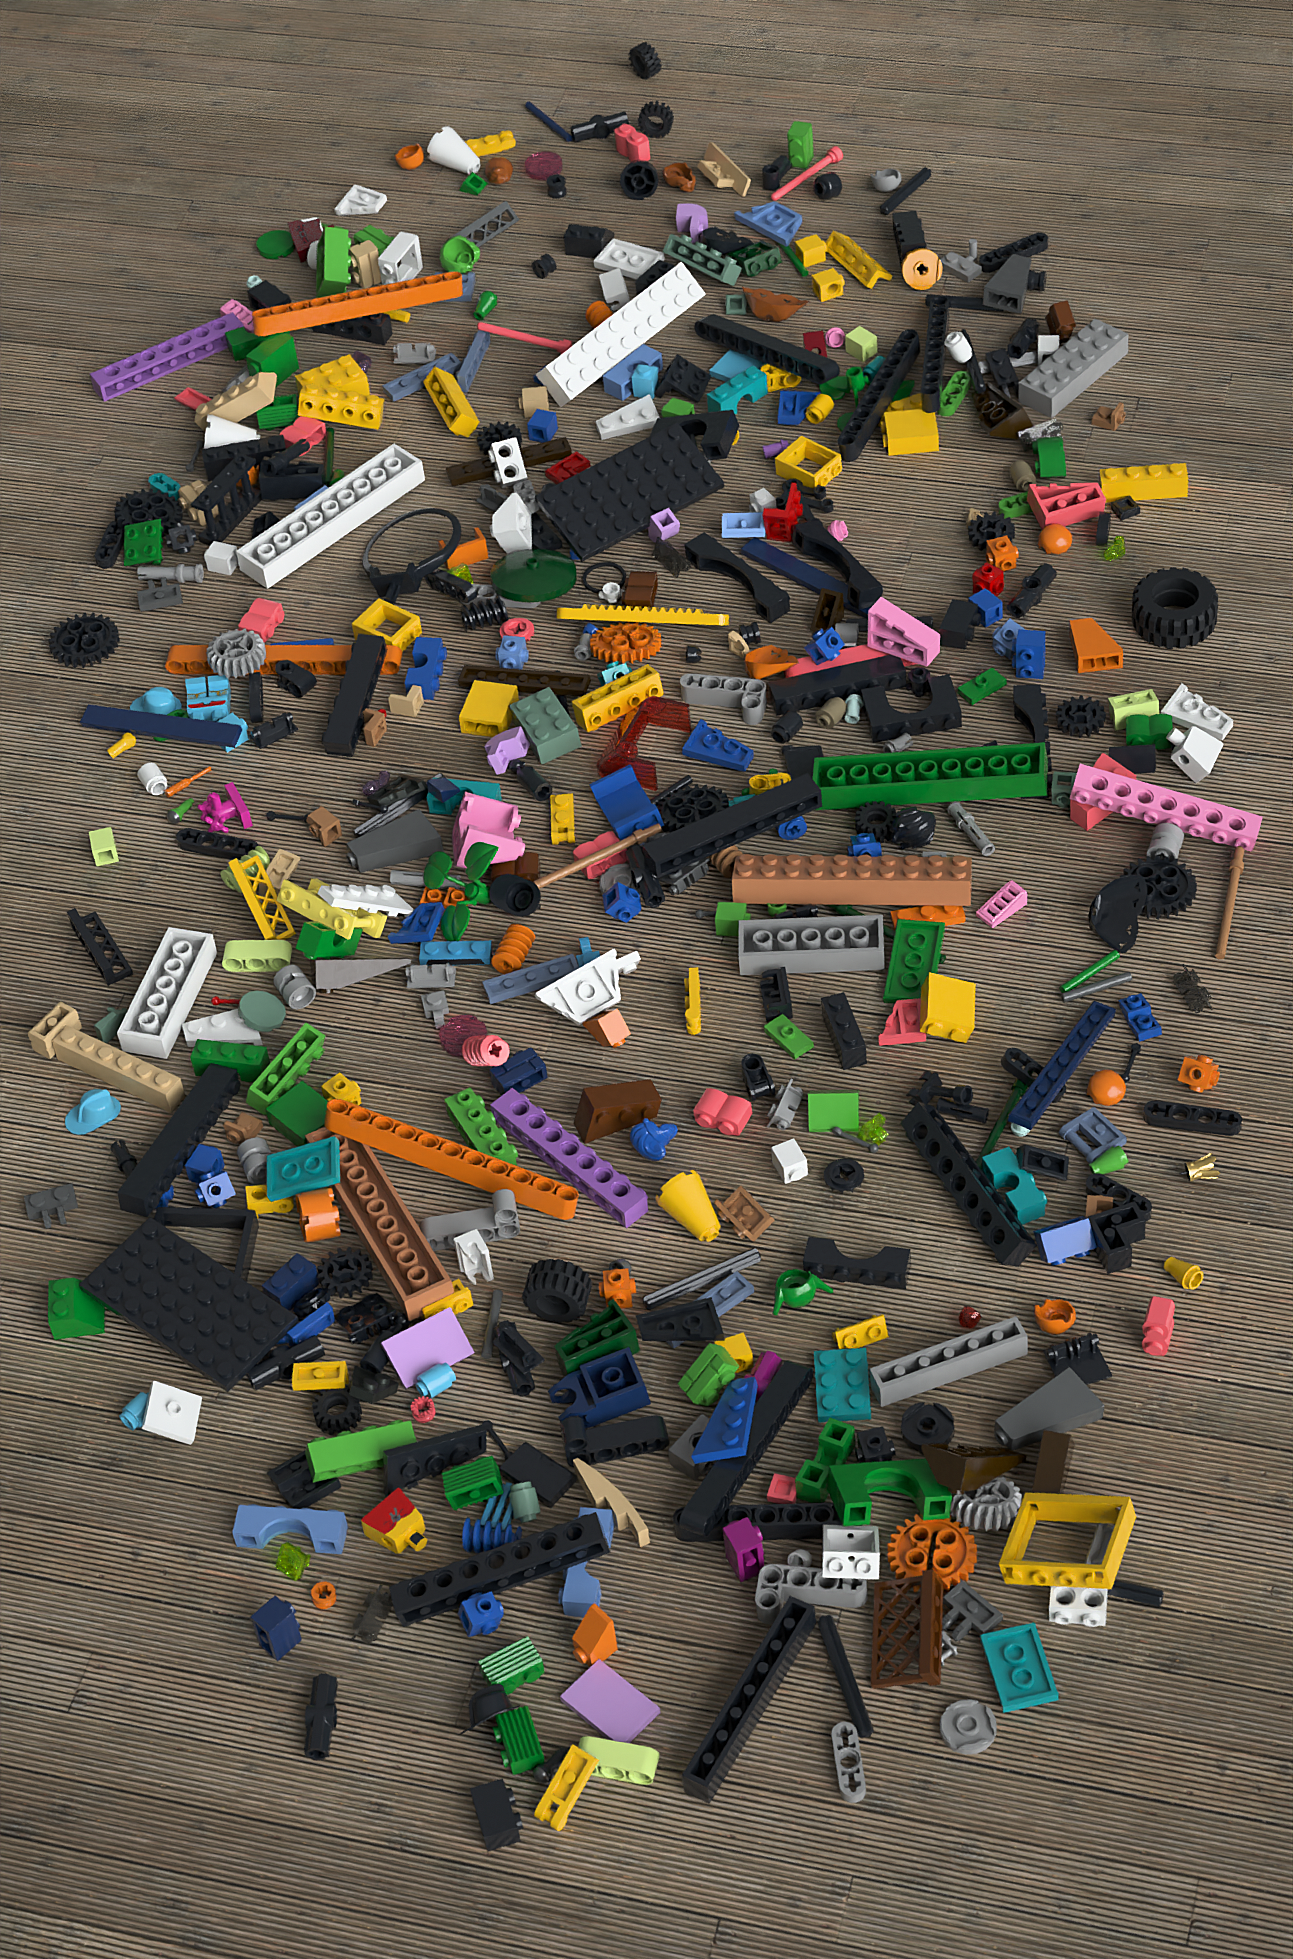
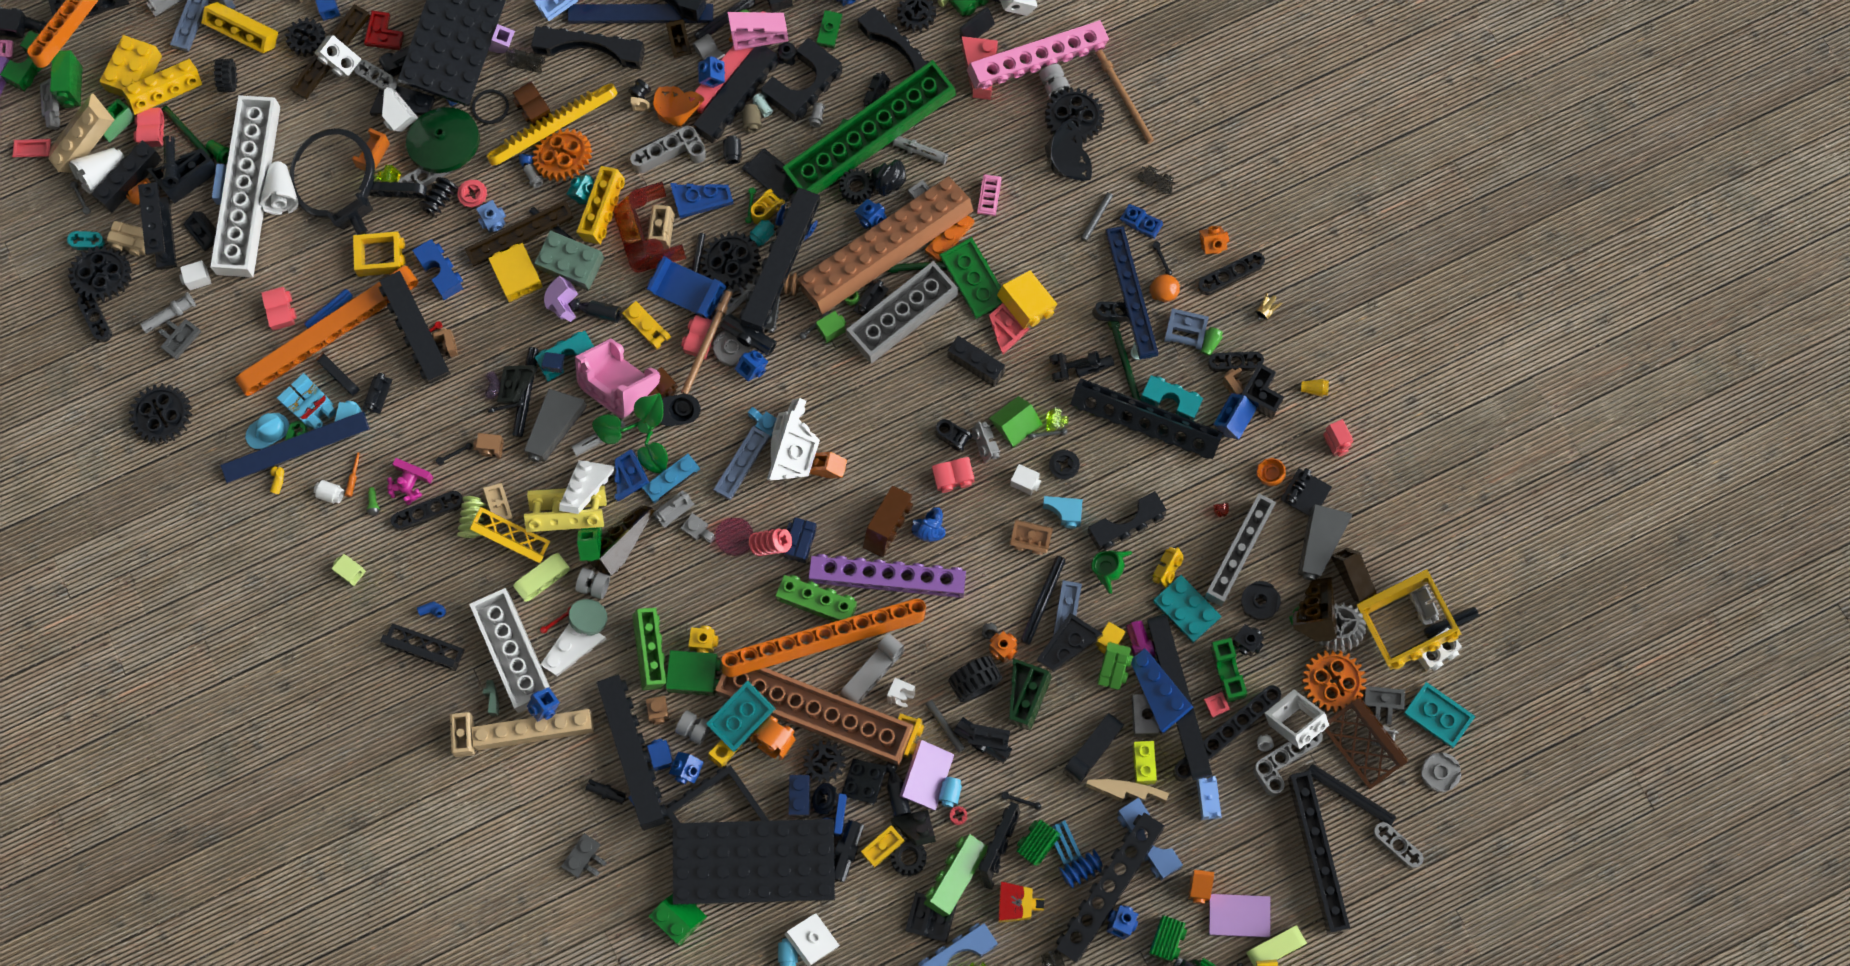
camera: 45 degrees left, 25 degrees up
(94, 1110) = (543, 772): medium azure piece -> none
(141, 922) = (433, 608): none -> blue arm
(141, 1040) = (543, 704): none -> blue brick
(143, 543) = (124, 303): green hinge -> none
(184, 530) = (154, 278): black brick -> none
(236, 653) = (290, 346): light grey gear -> none
(246, 1059) = (612, 663): green arch -> none
(294, 678) = (354, 341): black piece -> none
(353, 533) = (278, 190): none -> white cone
(364, 360) = (131, 29): clear purple arm -> none
(401, 428) = (225, 75): none -> black tyre
(409, 704) = (450, 306): tan panel -> none
(447, 898) = (630, 440): orange slope -> none
(490, 498) = (354, 93): dark grey hinge -> none
(513, 949) = (709, 450): orange piece -> none
(524, 1502) = (1079, 830): sand green brick -> none
(546, 1475) = (1066, 804): black piece -> none
(602, 1389) = (1054, 728): dark blue brick -> none
(611, 592) = (510, 113): white plate -> none
(653, 1487) = (1144, 762): none -> neon yellow brick
(657, 743) = (661, 224): none -> tan brick
(687, 1568) = (1208, 798): none -> light blue hinge
(689, 1205) = (998, 557): yellow cone -> none
(692, 654) = (613, 132): black hinge -> none
(692, 1002) = (862, 405): yellow plate -> none
(744, 1548) = (1234, 763): magenta brick -> none
(776, 994) = (909, 363): black hinge -> none
(788, 1036) = (941, 388): bright green plate -> none
(806, 1214) = (1067, 509): none -> medium azure arch
(852, 1483) = (1287, 641): green arch -> none
(1043, 1162) = (1177, 371): black slope -> none
(1062, 793) = (960, 81): sand green brick -> none
(1090, 971) = (1083, 208): green bar -> none

